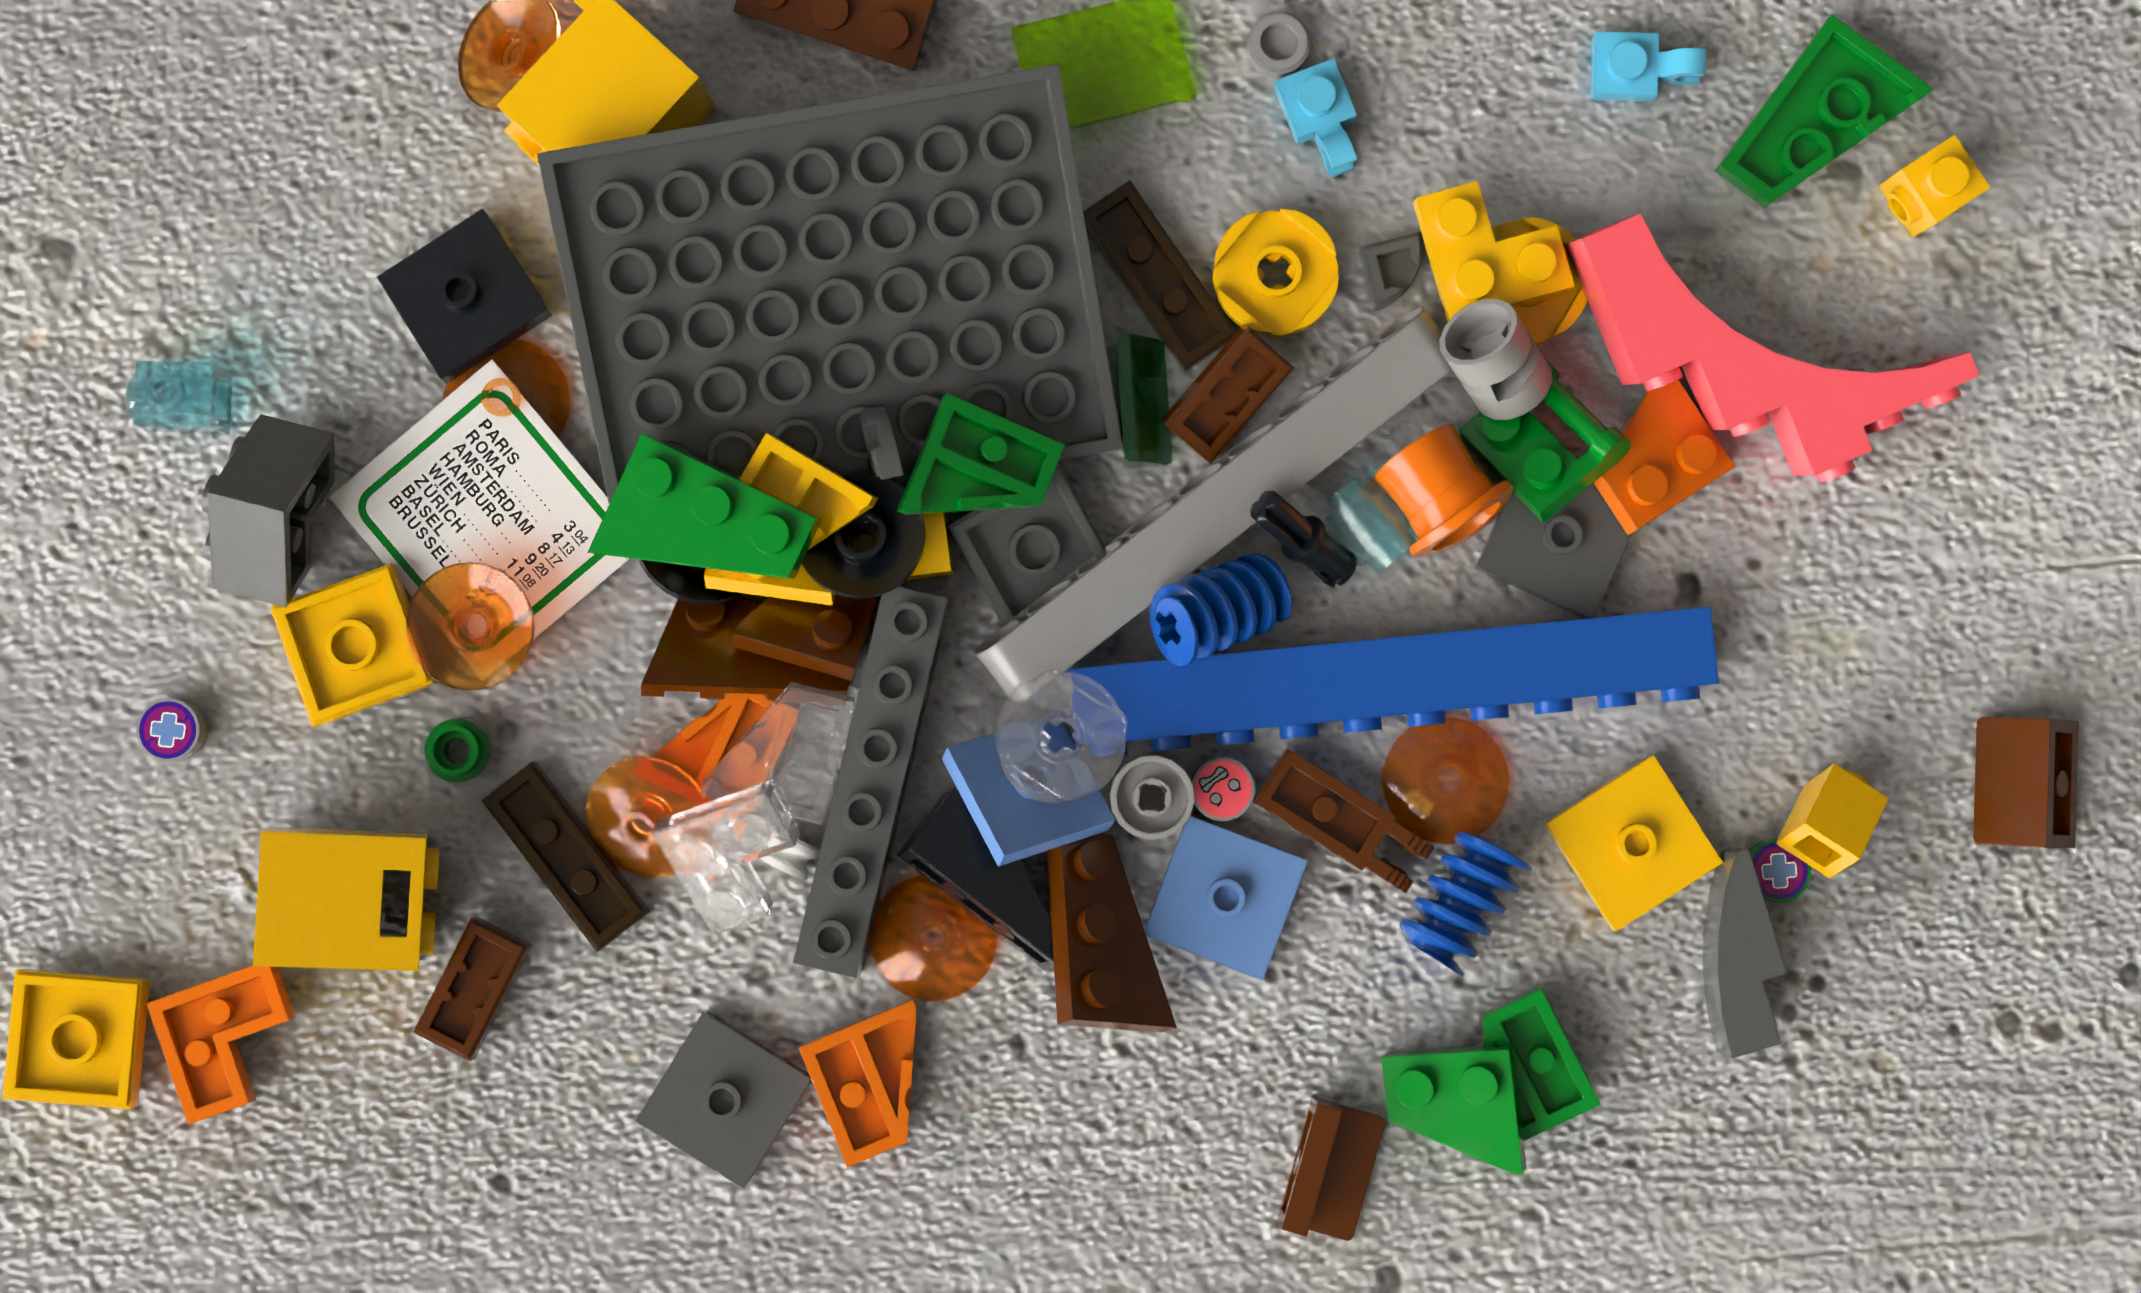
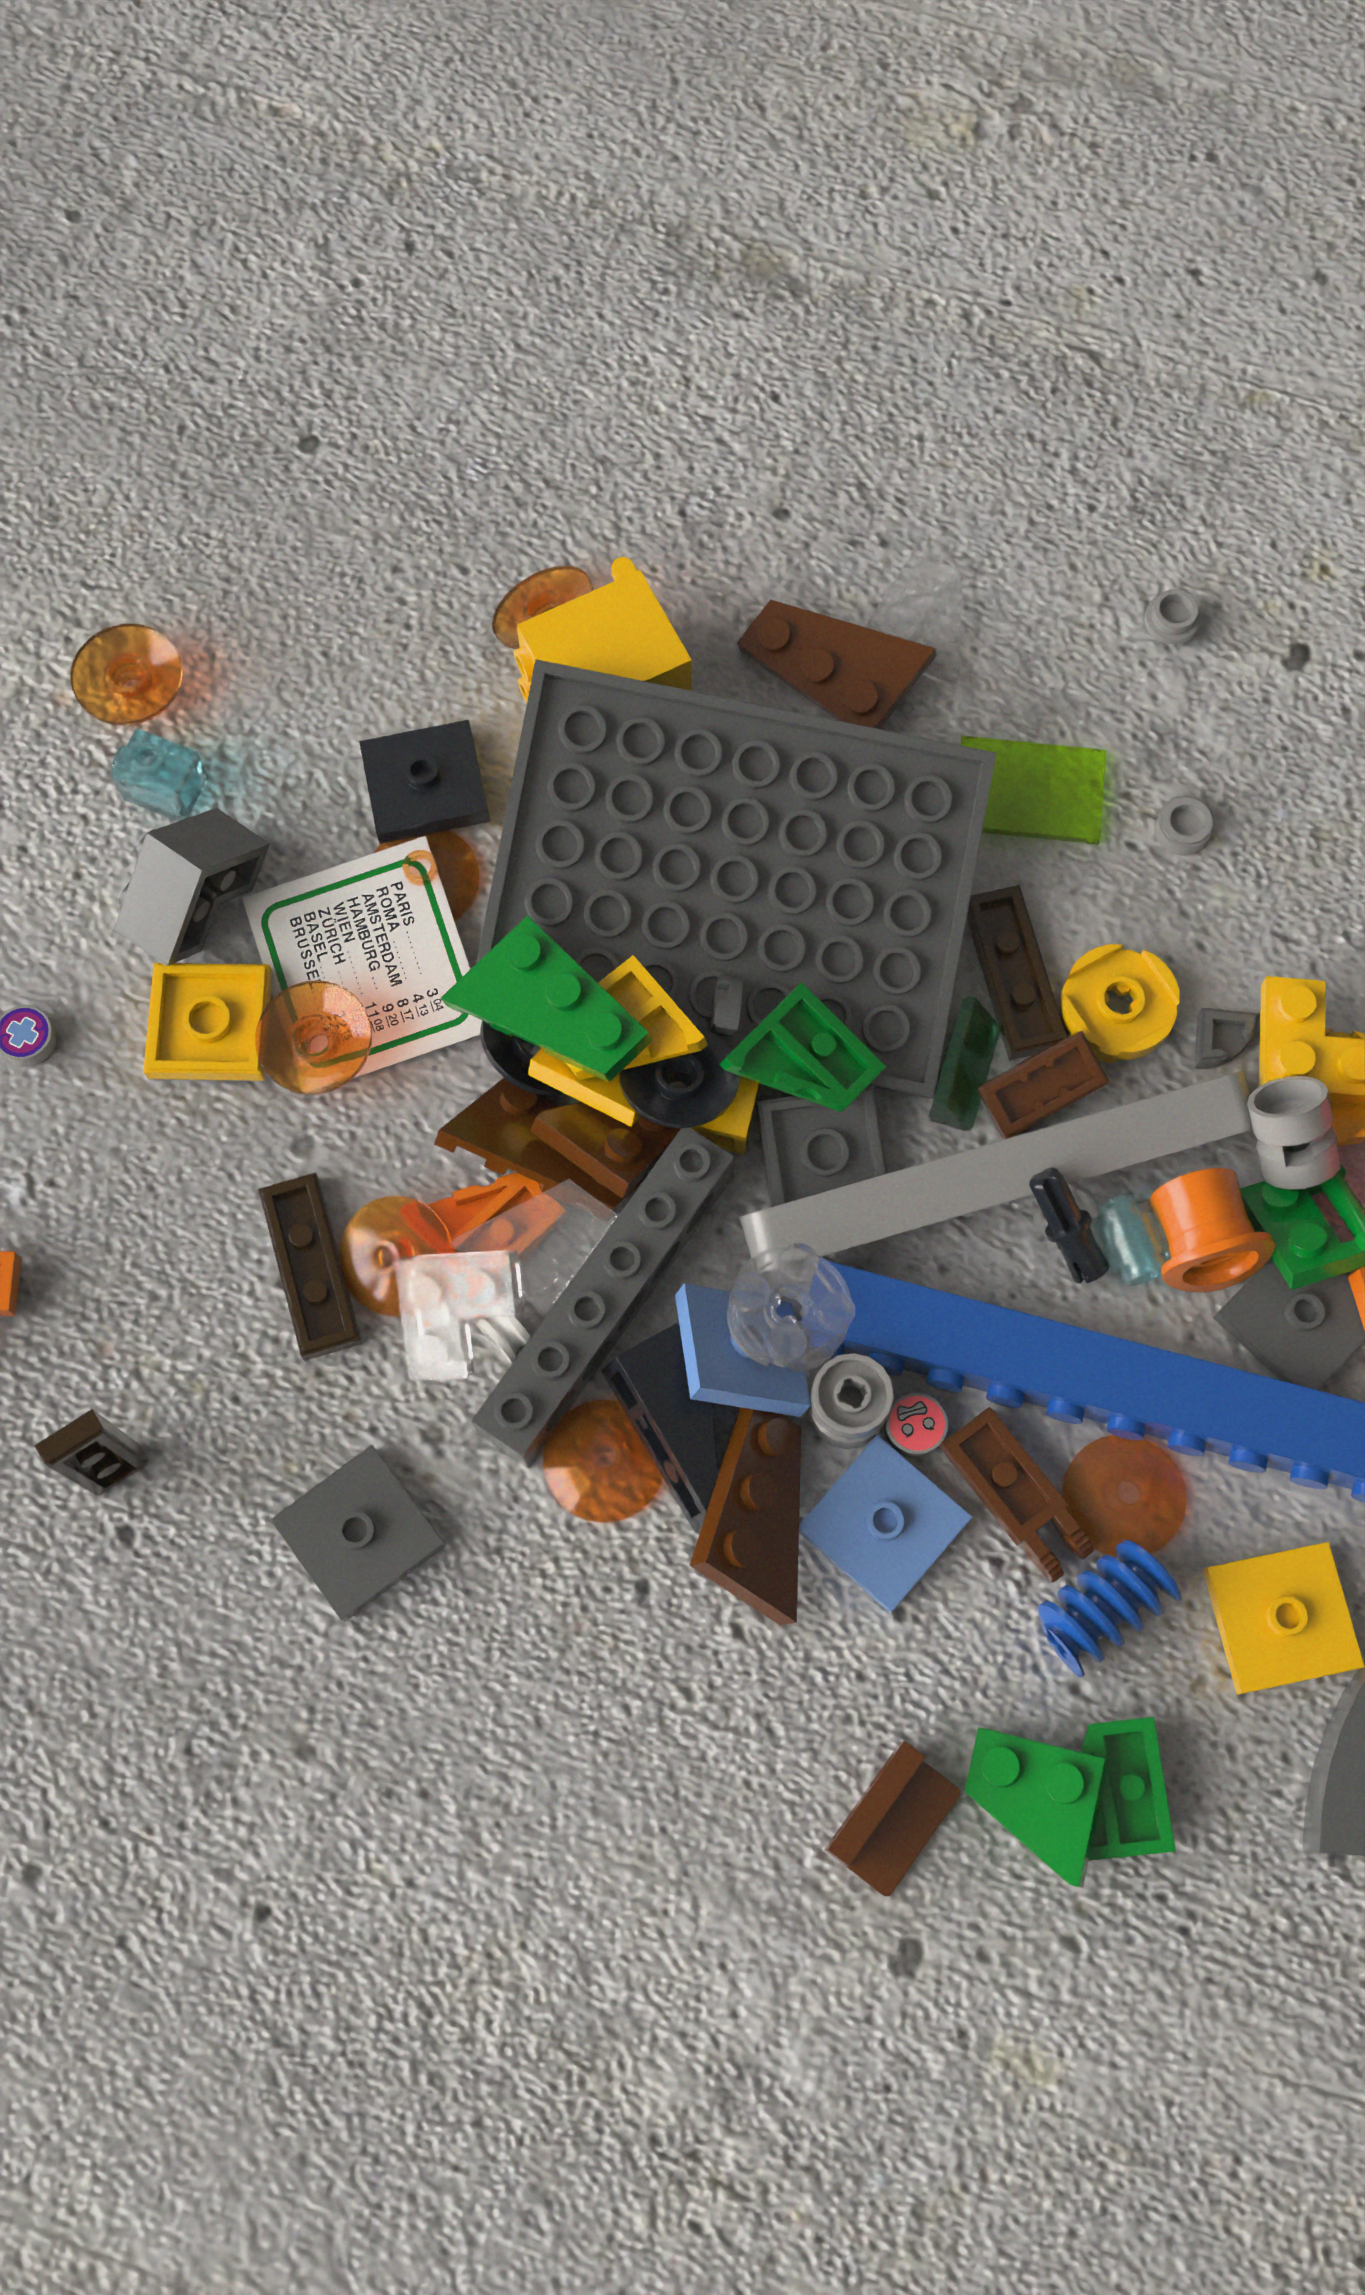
camera: 20 degrees right, 15 degrees down
(66, 291) = (123, 655): none -> clear orange dish
(325, 899) = (85, 1204): yellow container -> none
(438, 755) = (248, 1126): green plate -> none
(441, 1140) = (92, 1453): none -> dark brown tile
(472, 988) = (178, 1347): reddish brown plate -> none
(866, 1080) = (493, 1563): orange wing -> none
(1219, 608) = (972, 1256): blue piece -> none
(1318, 109) = (1205, 887): medium azure plate -> none

